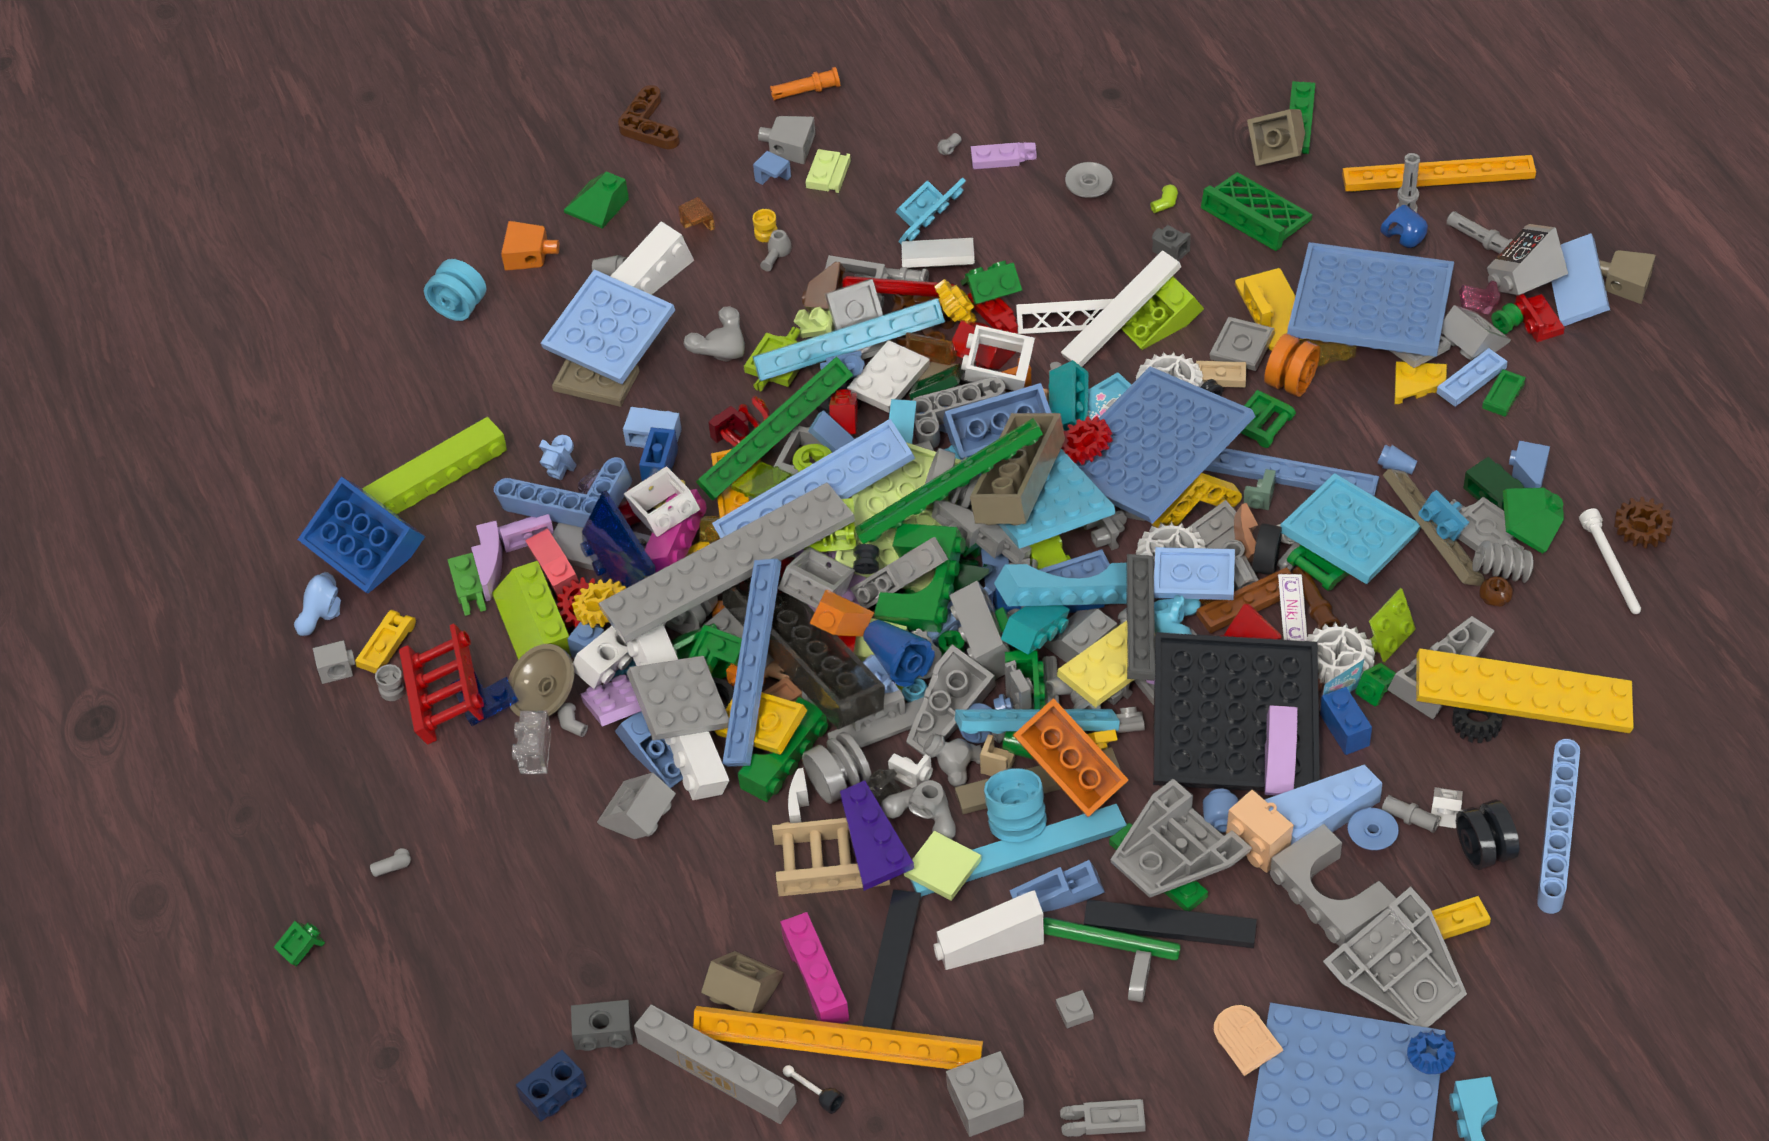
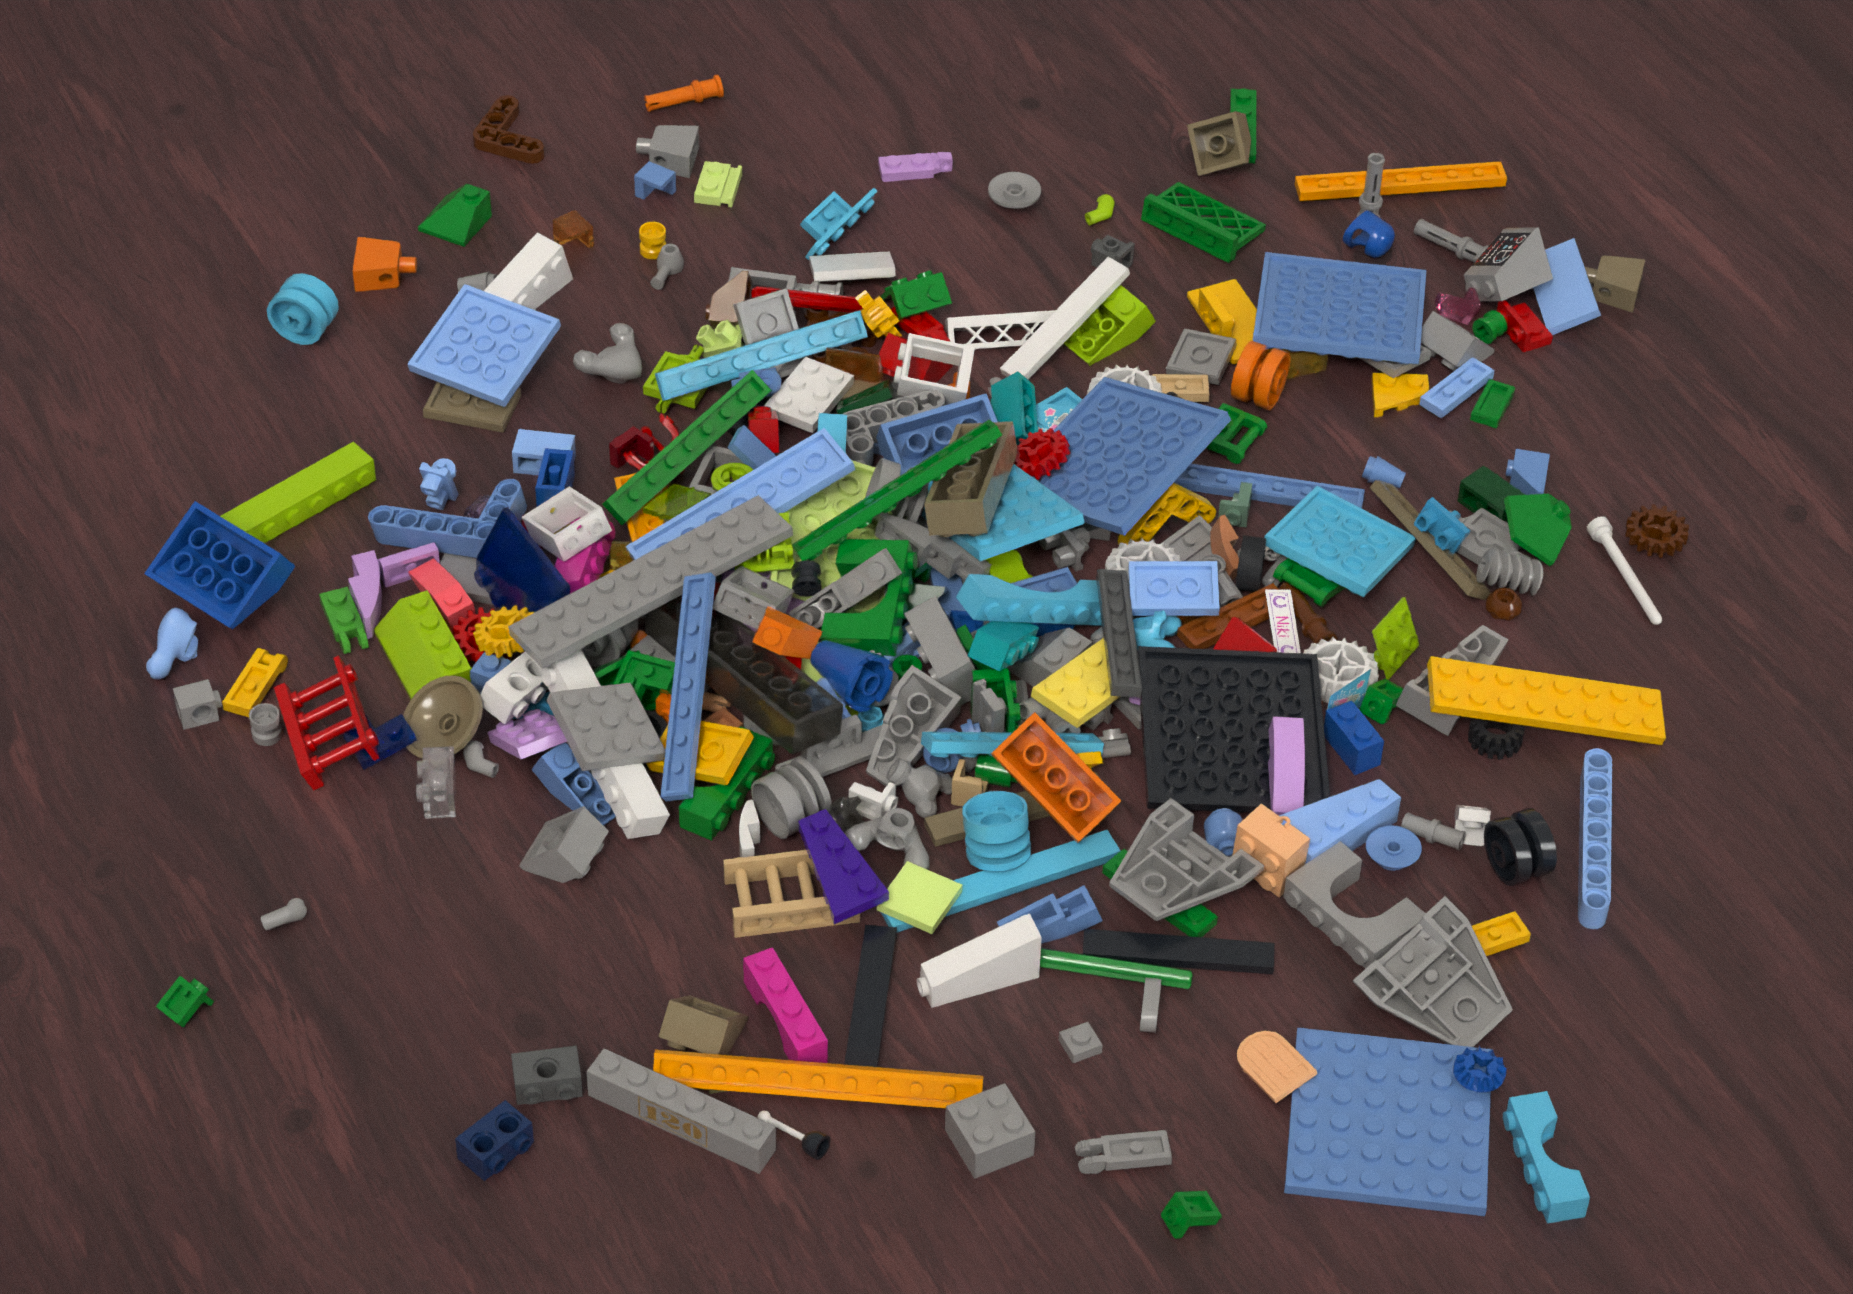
camera: 10 degrees left, 5 degrees down
(947, 146) = (851, 157): light grey arm -> none

